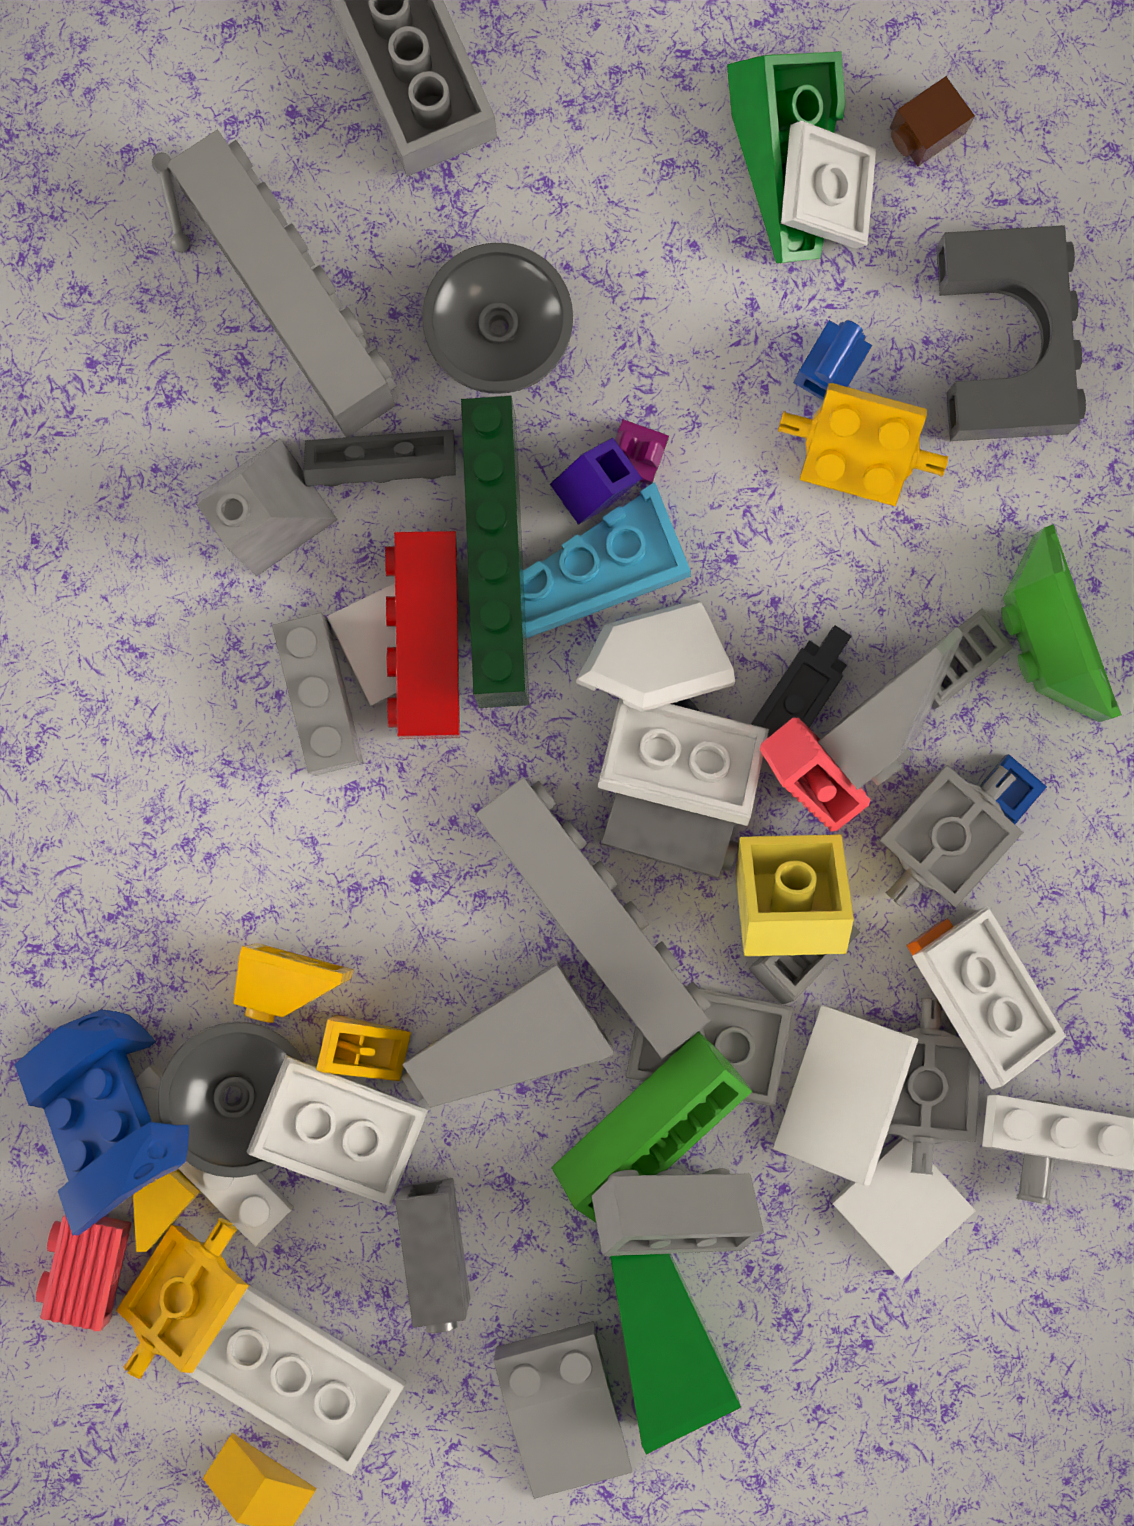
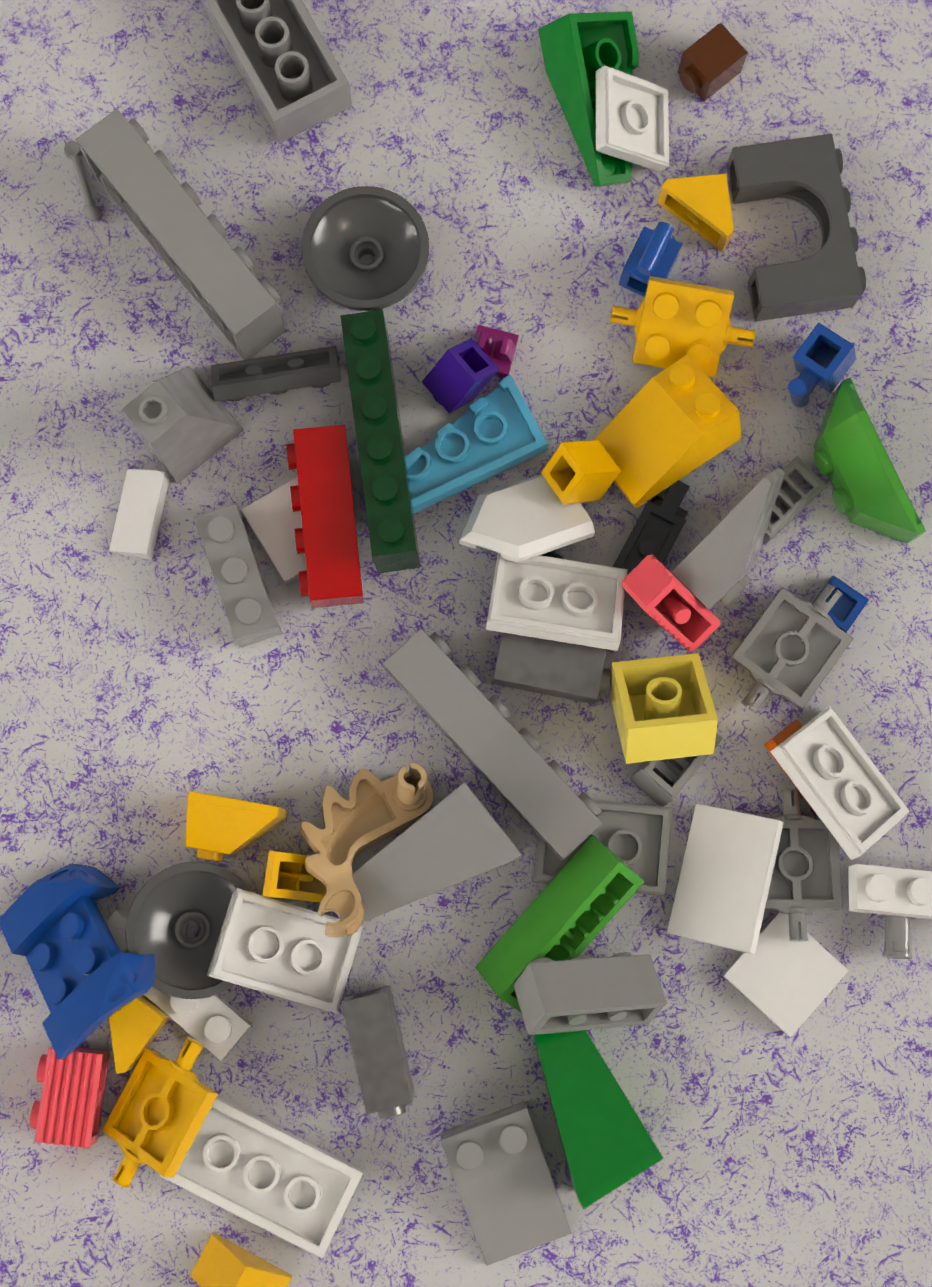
camera: 10 degrees left, 5 degrees down
(209, 609) = (139, 513): none -> white slope
(425, 997) = (369, 816): none -> tan animal
(725, 609) = (580, 471): none -> yellow brick
(830, 570) = (669, 430): none -> yellow slope
(901, 297) = (701, 205): none -> yellow slope
(1023, 500) = (820, 361): none -> blue brick

